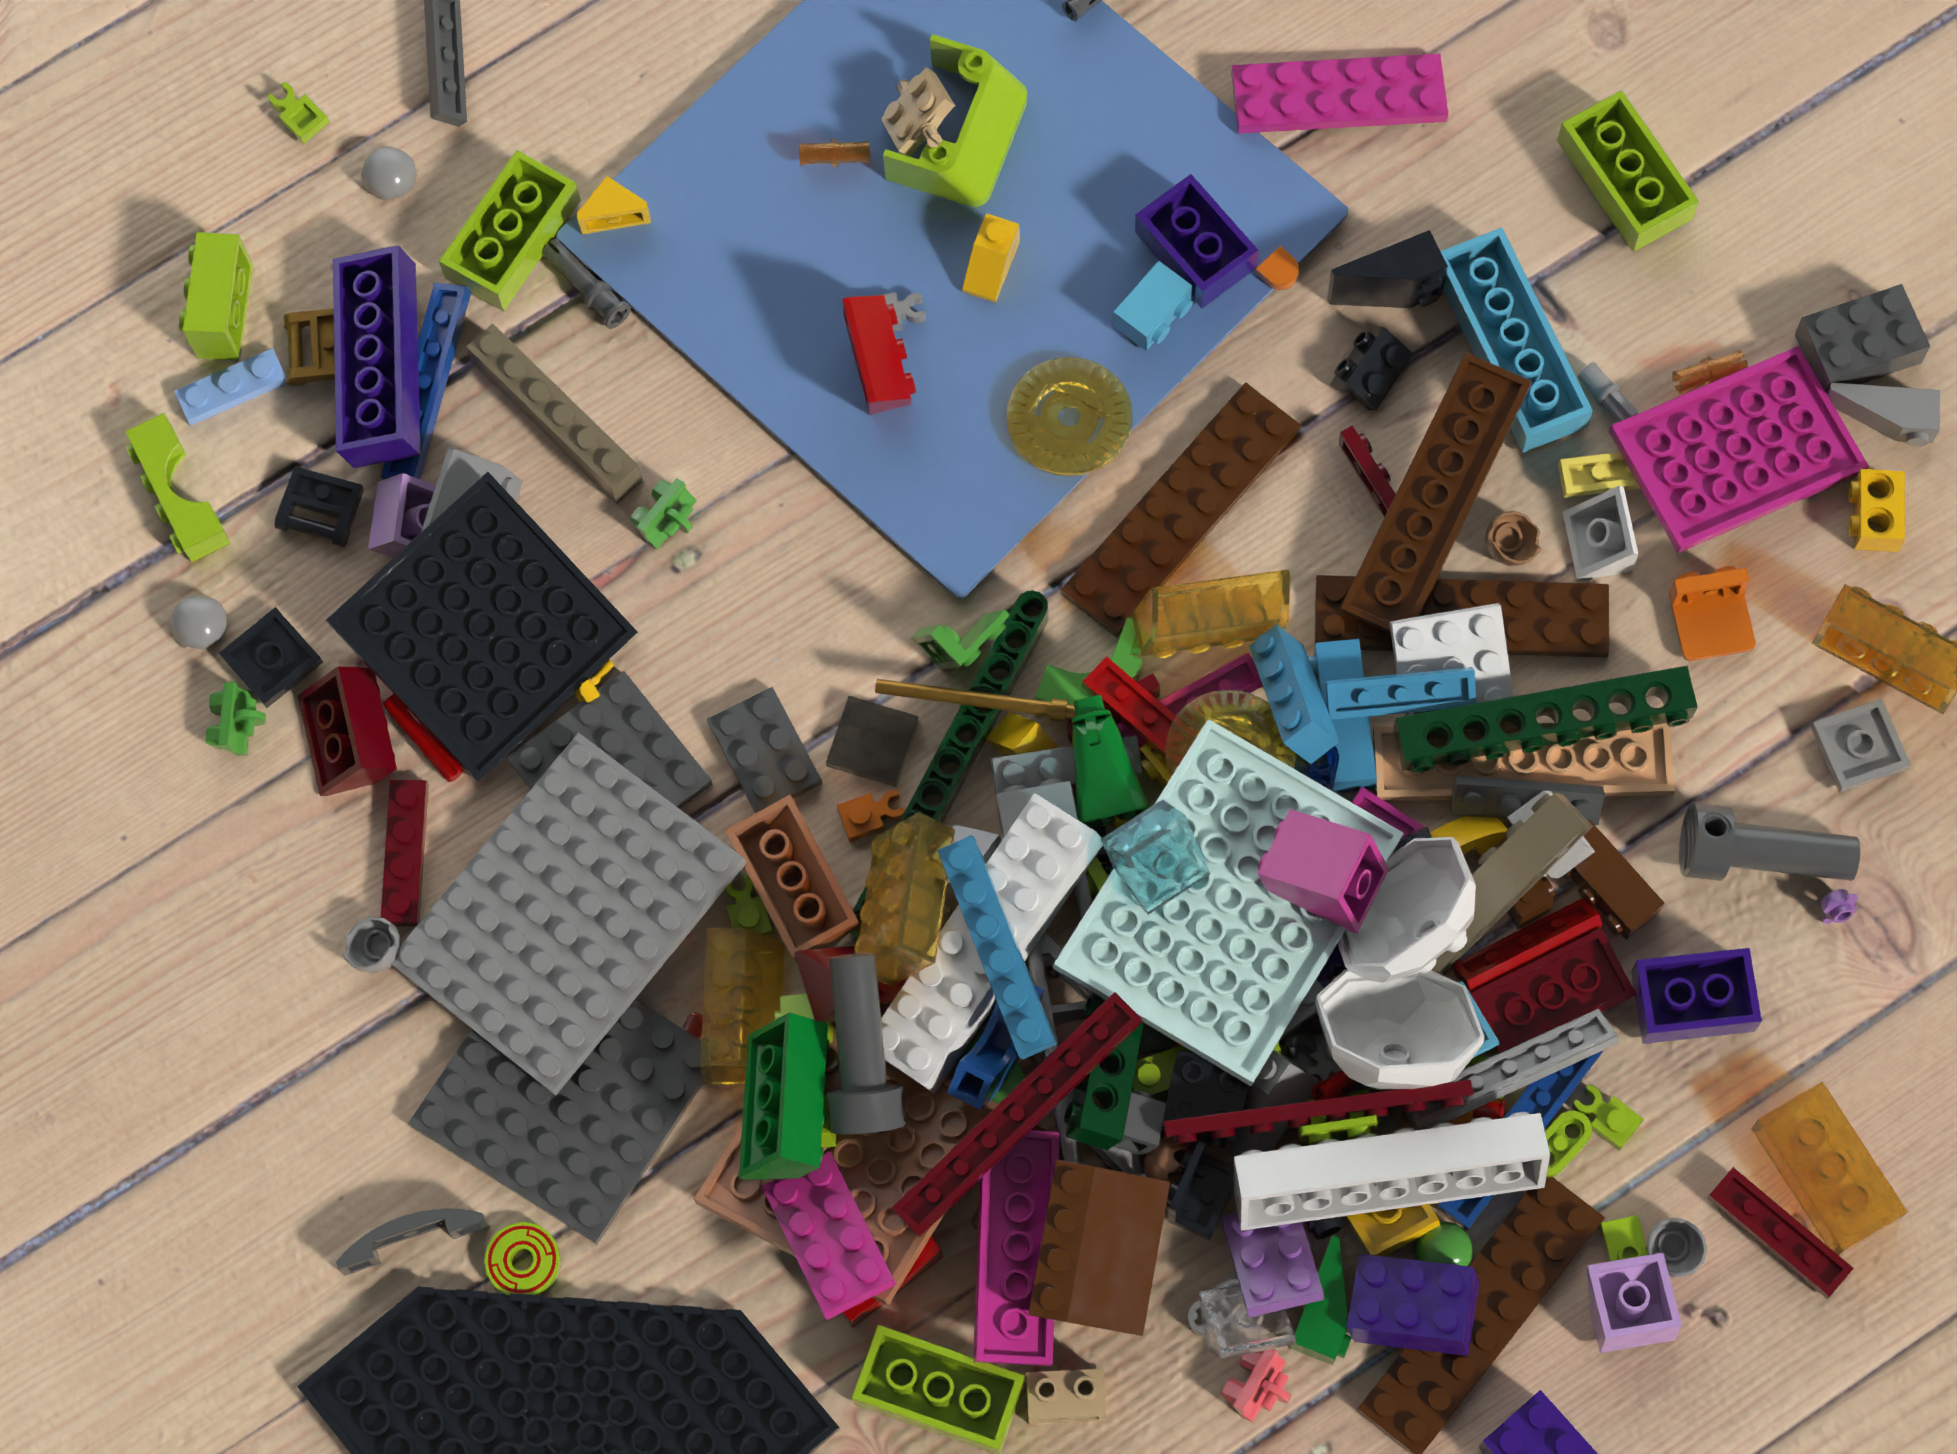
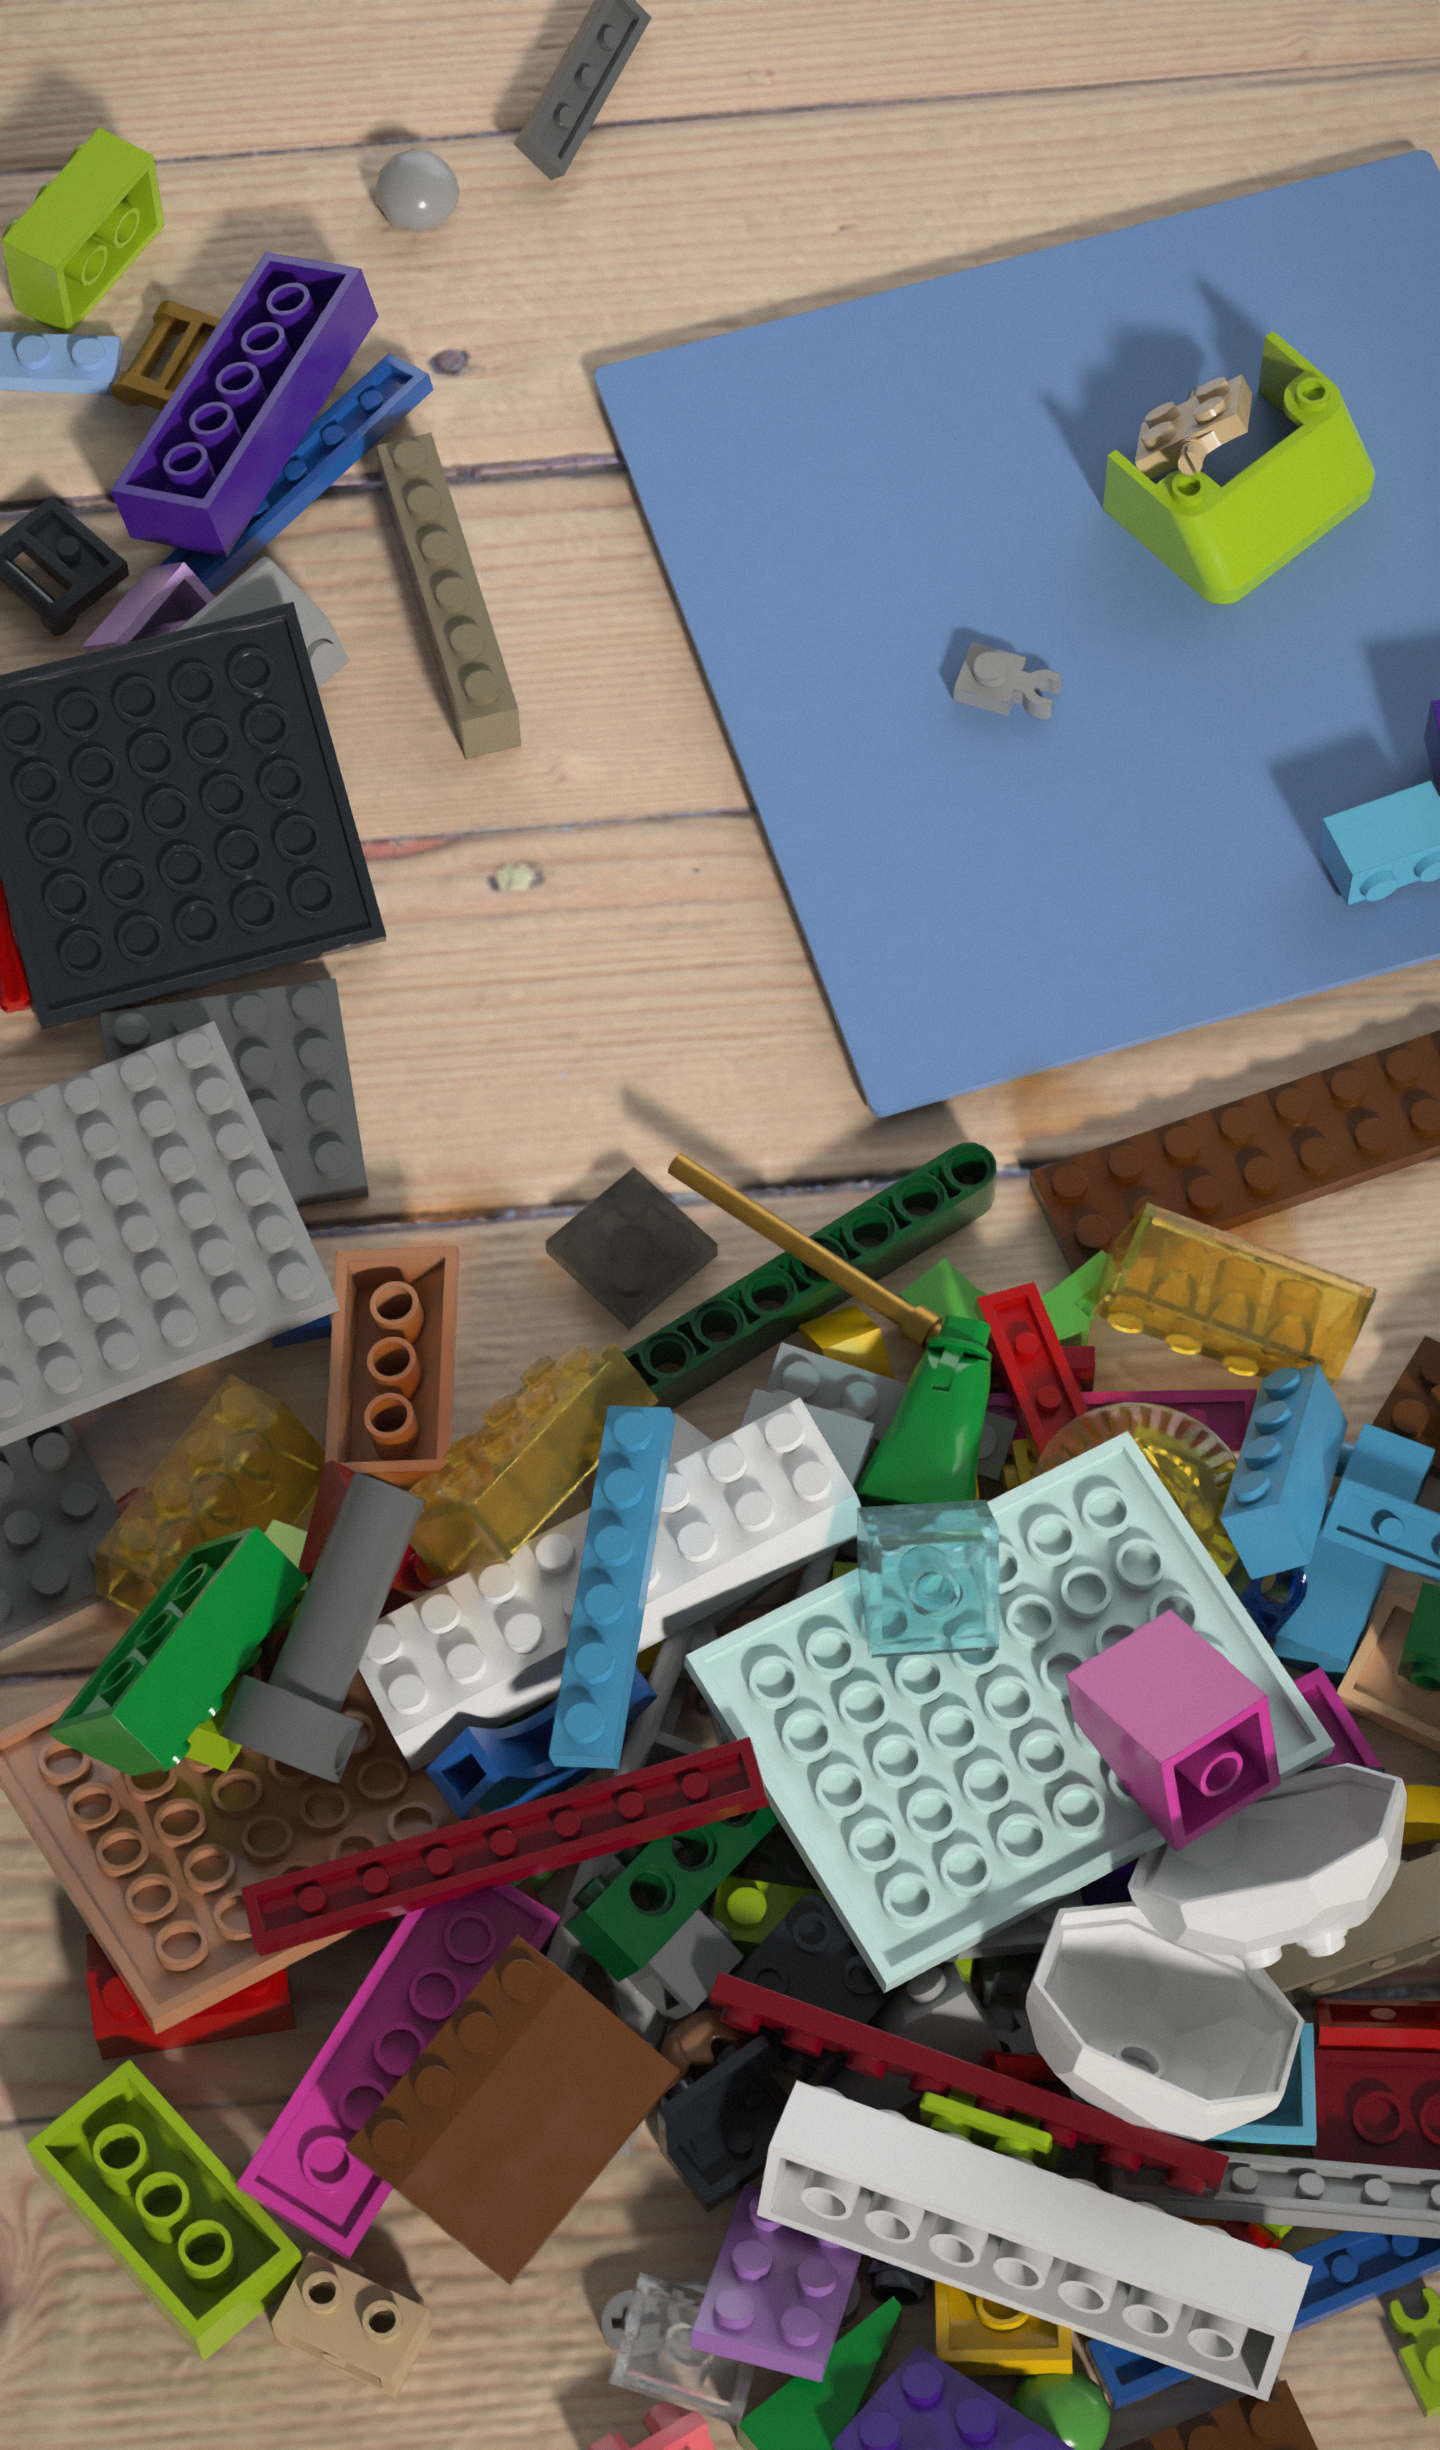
camera: 25 degrees right, 10 degrees down
(299, 115) = (342, 64): lime plate -> none
(510, 230) = (532, 331): lime brick -> none
(587, 690) = (269, 977): yellow hand -> none
(595, 293) = (603, 468): dark grey pin -> none
(612, 208) = (688, 365): yellow slope -> none
(667, 515) = (522, 798): bright green hips -> none
(748, 911) = (307, 1389): lime plate -> none
(764, 750) = (470, 1181): dark grey plate -> none
(829, 1238) = (130, 1888): dark pink plate -> none
(834, 152) = (1047, 436): clear orange pin -> none
(864, 815) = (556, 1334): orange plate -> none
(877, 352) = (945, 715): red slope -> none
(950, 650) = (803, 1156): bright green bracket -> none
(991, 257) = (1192, 672): yellow slope -> none
(1077, 385) = (1218, 902): clear yellow piece -> none
(1562, 1147) = (1329, 2352): lime plate -> none

